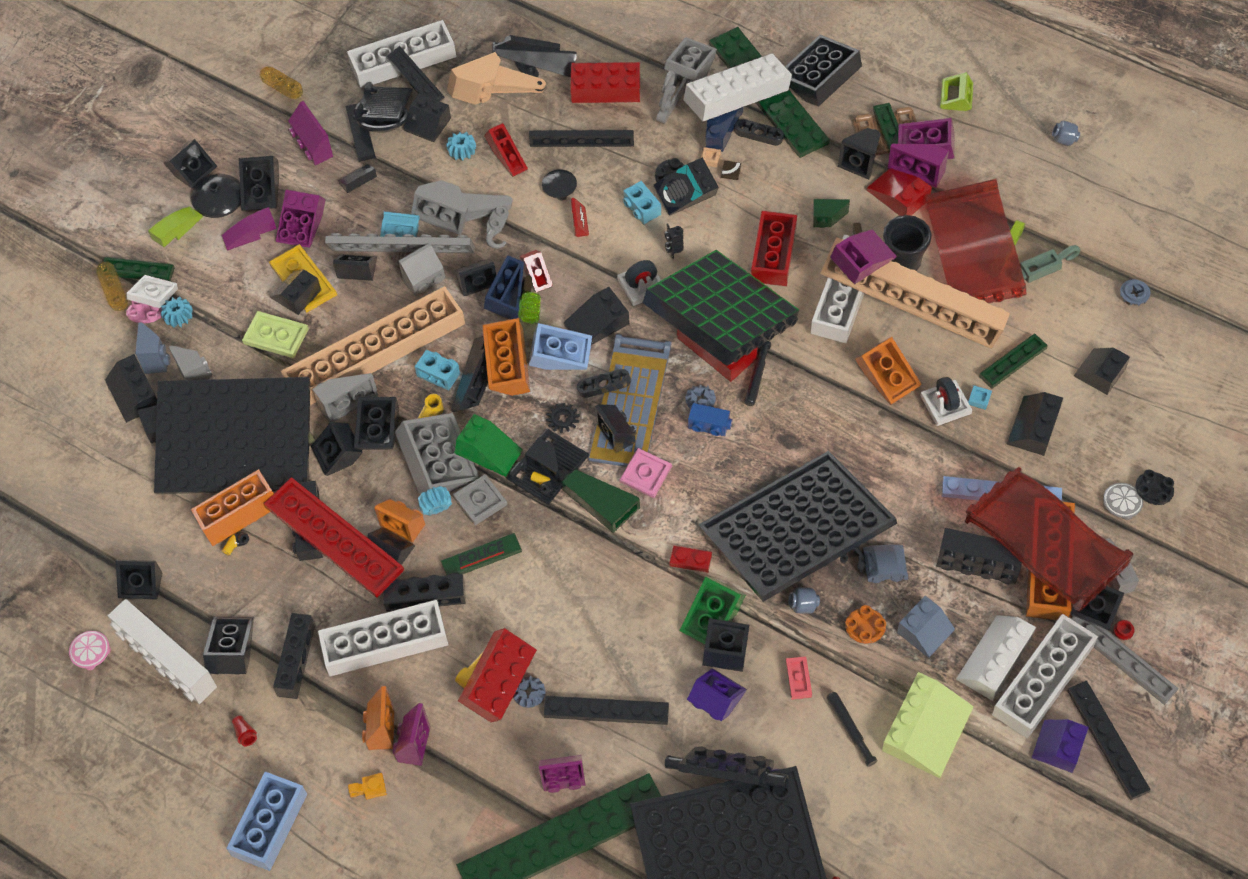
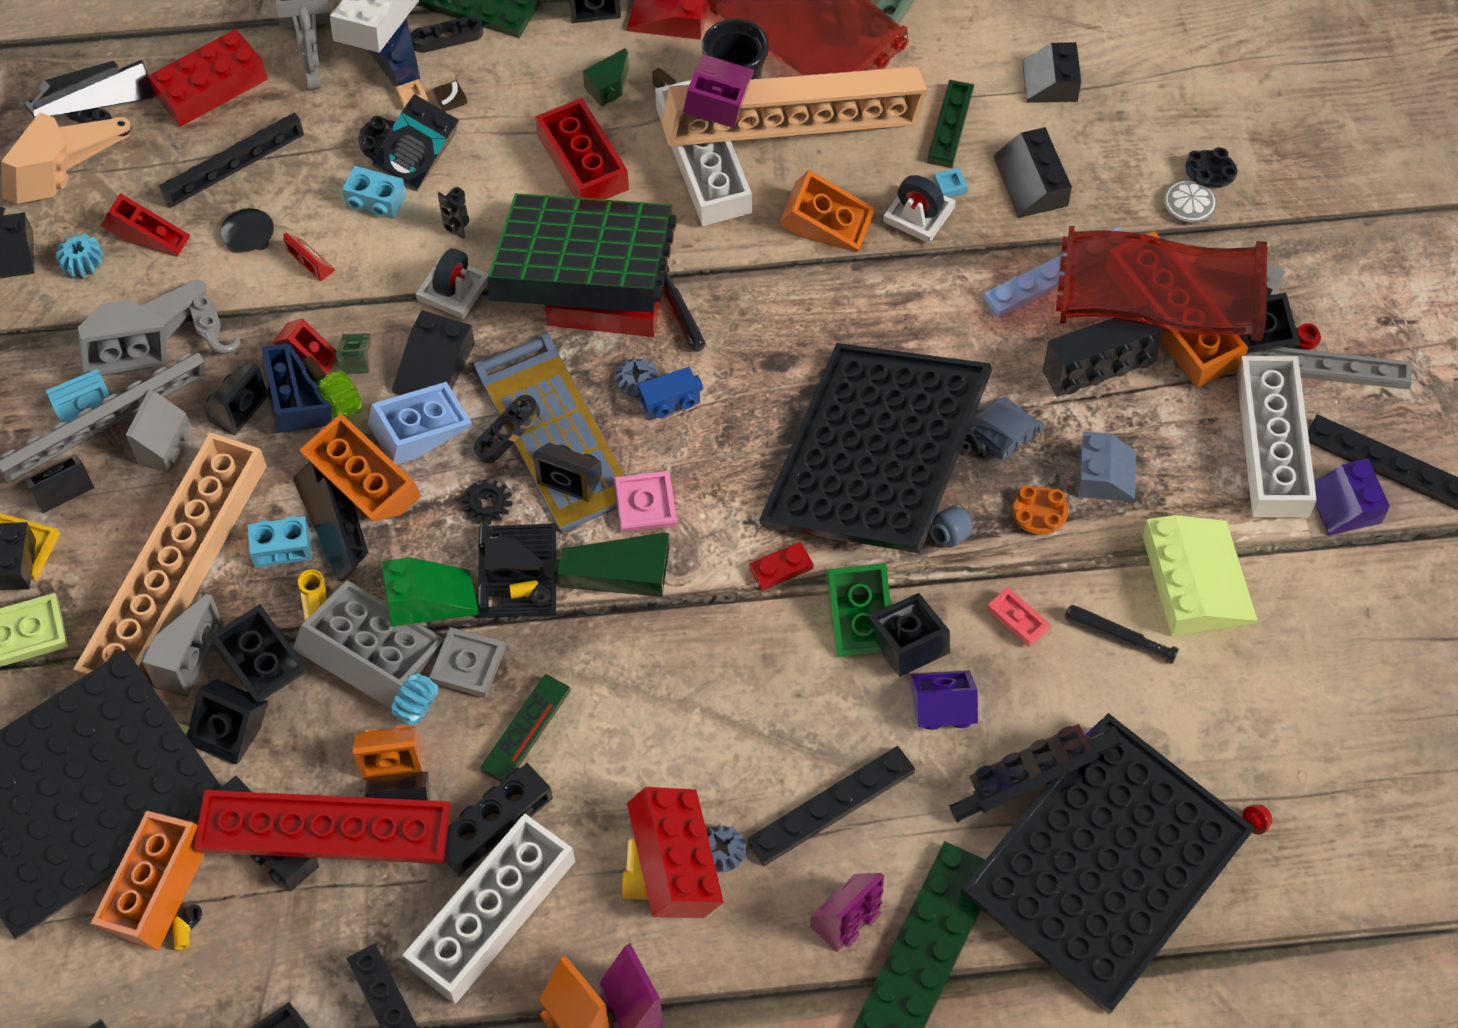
camera: 40 degrees left, 0 degrees up
(557, 287) = (353, 353): none -> clear green slope
(996, 655) = (1205, 448): white slope -> none

